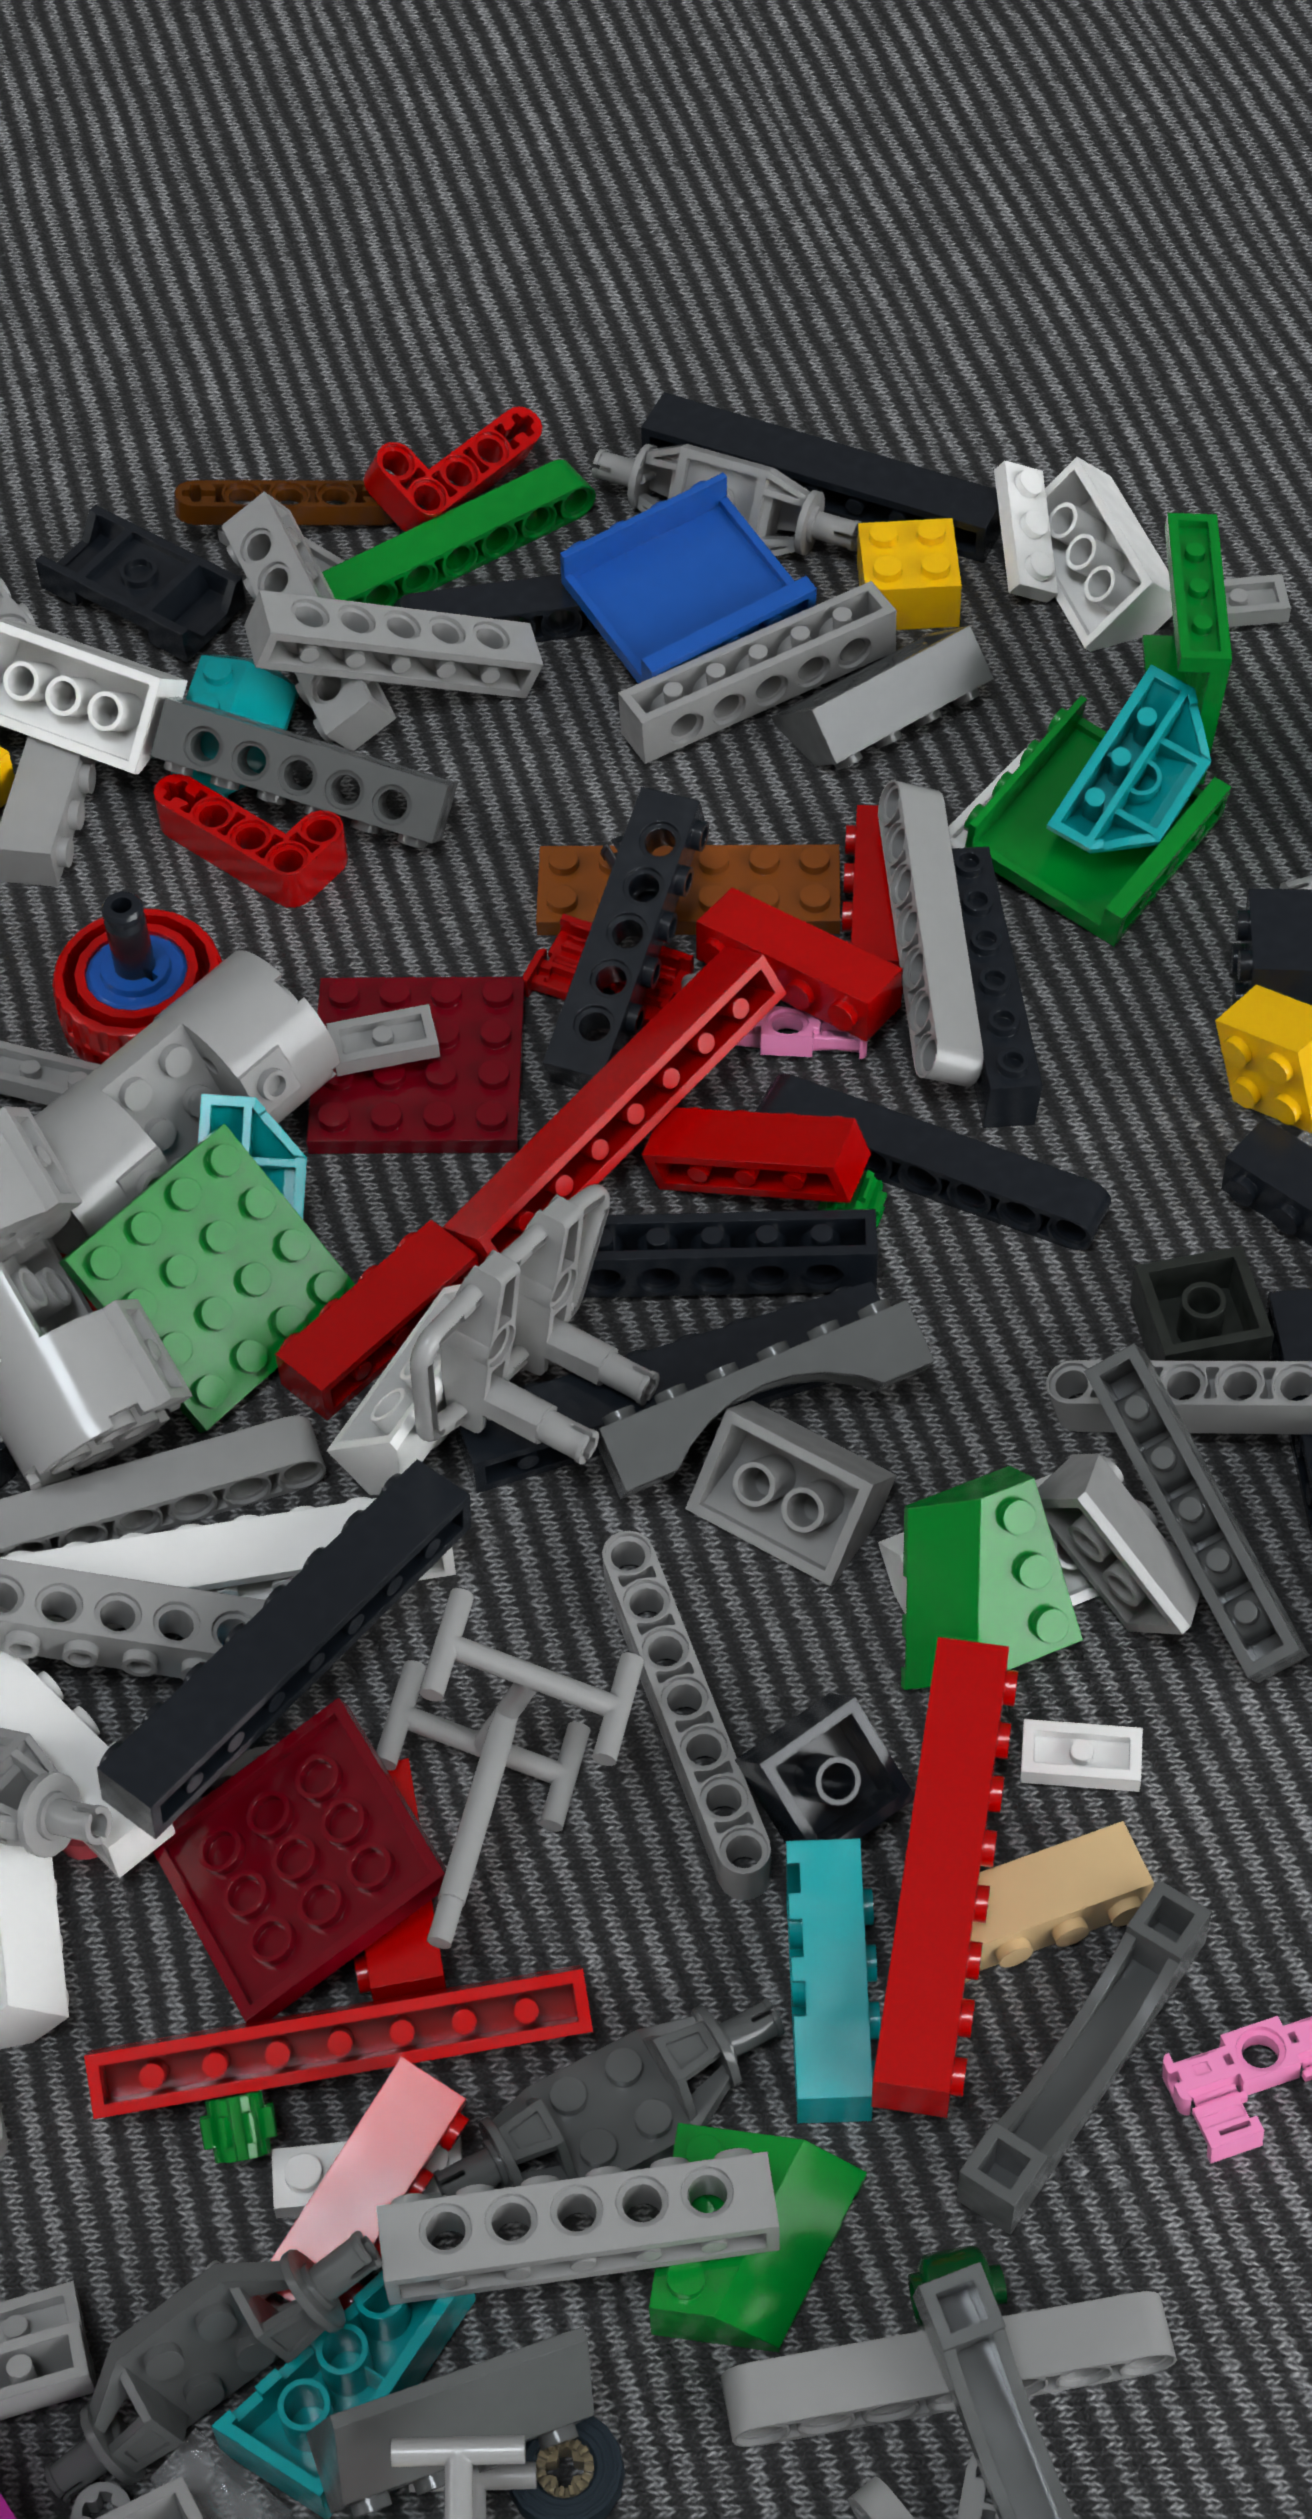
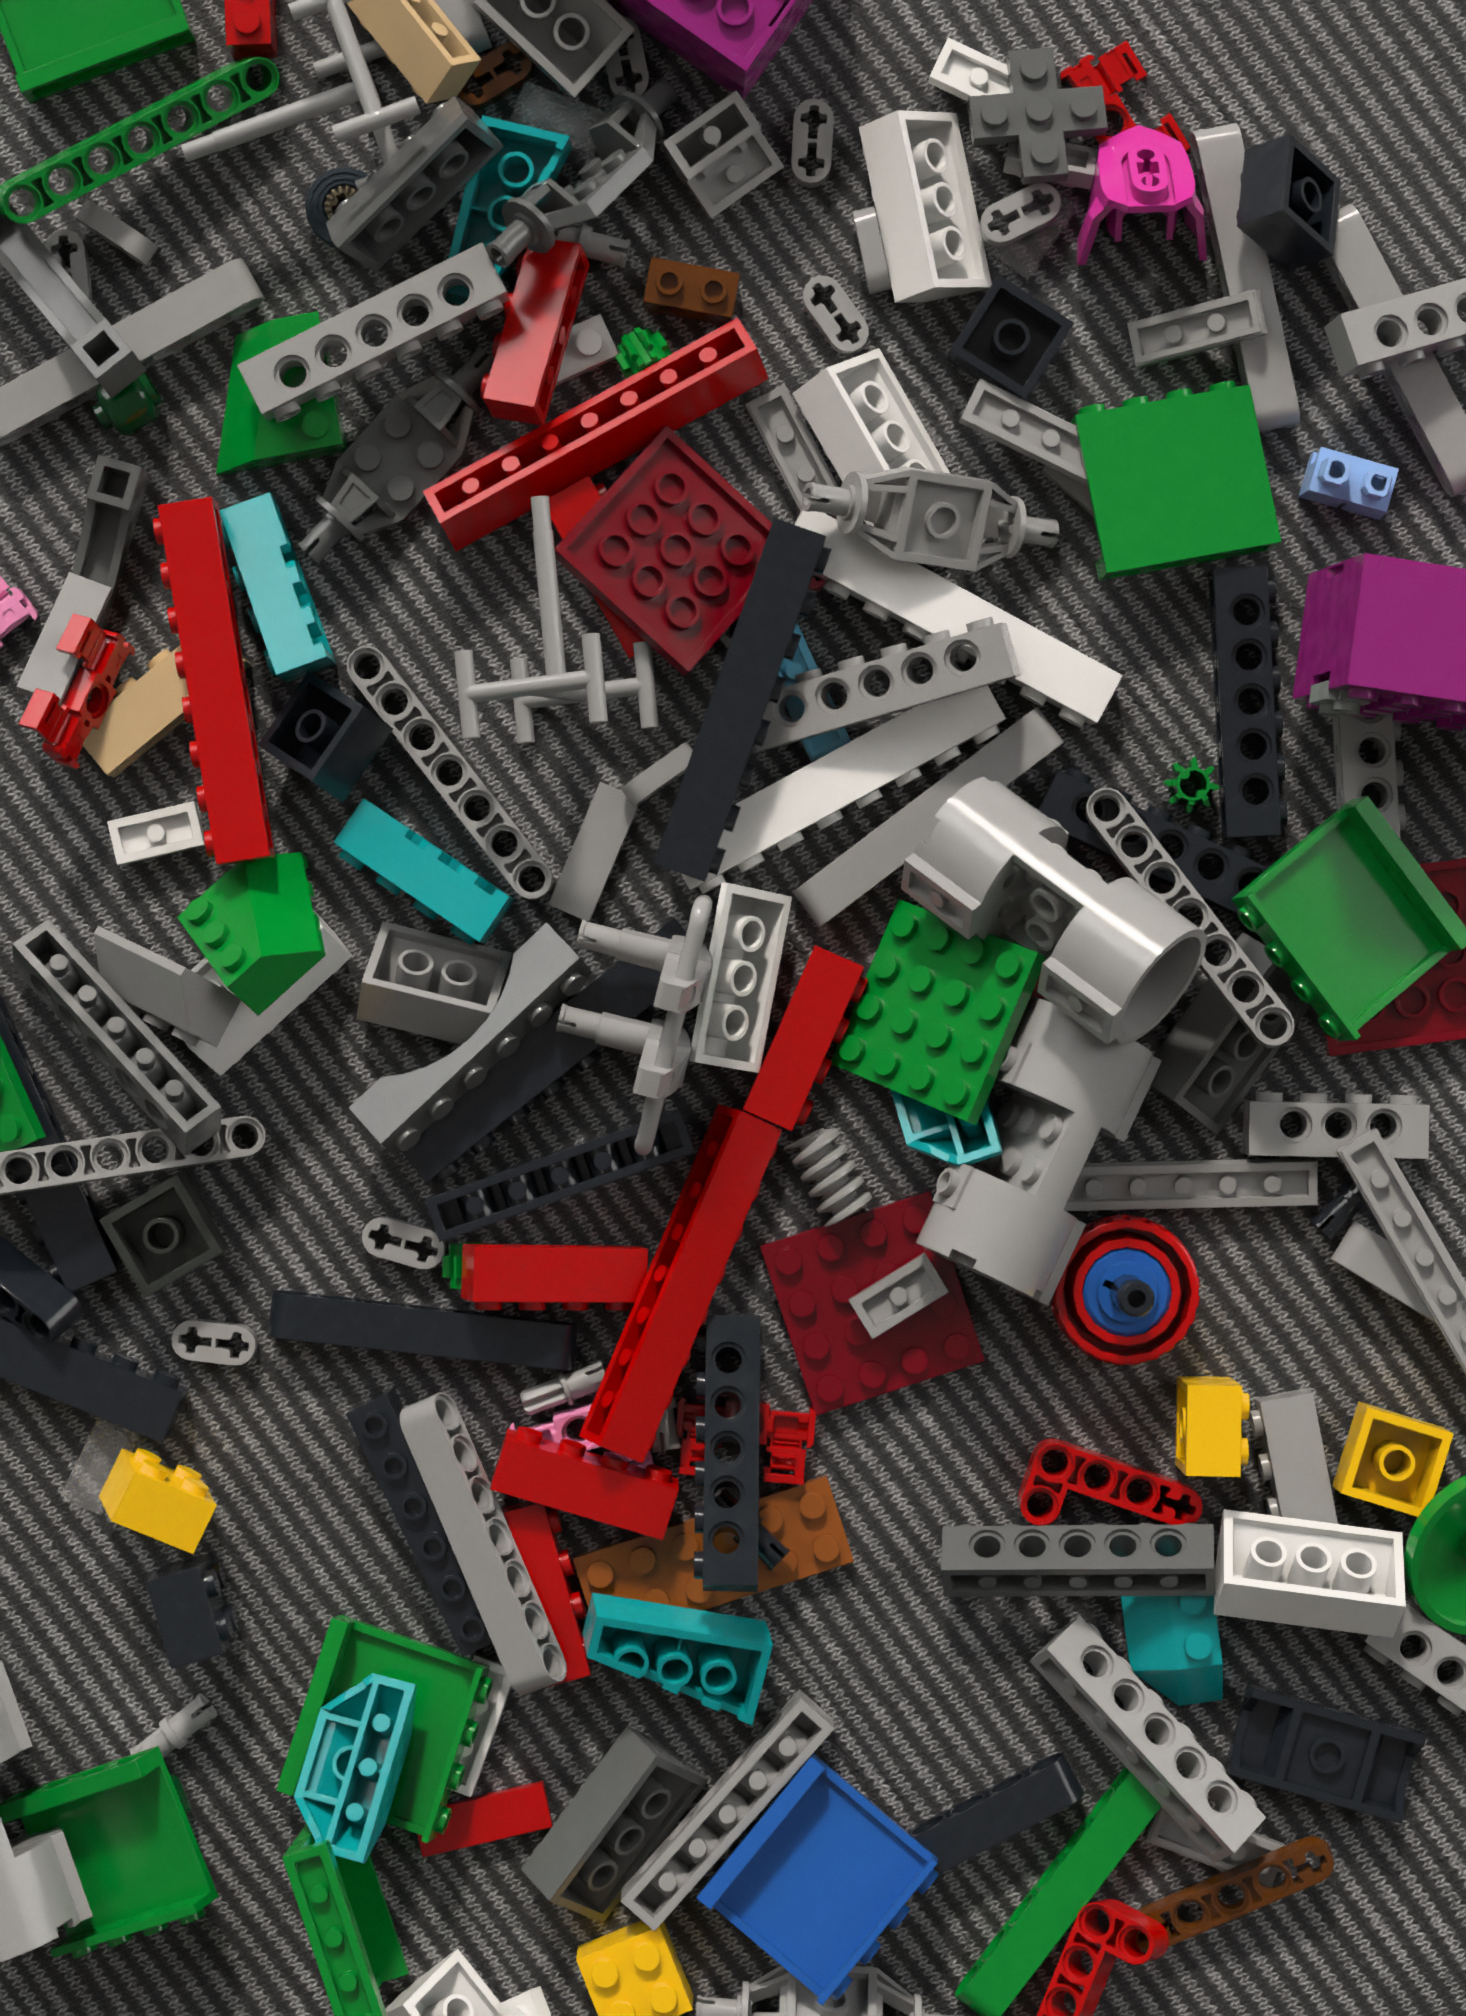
camera: 160 degrees right, 35 degrees up
(100, 1961) = (789, 442): none -> light grey tile
(112, 842) = (1210, 1426): none -> yellow brick
(141, 2189) = (691, 291): none -> reddish brown brick
(392, 644) = (1133, 1655): light grey brick -> none
(408, 1176) = (830, 1174): none -> light grey piece
(414, 1633) = (658, 775): none -> light grey beam
(540, 1584) = (594, 853): none -> light grey tile
(752, 1598) = (424, 872): none -> teal wedge
(757, 797) = (683, 1649): none -> teal wedge
(812, 1066) = (562, 1389): none -> light grey axle
(922, 1253) = (401, 1253): none -> light grey beam
(992, 735) = (492, 1818): none -> red tile
(1097, 1946) = (72, 721): none -> red piece
(1130, 1986) = (47, 666): none -> light grey tile
(1175, 1217) = (213, 1352): none -> light grey beam

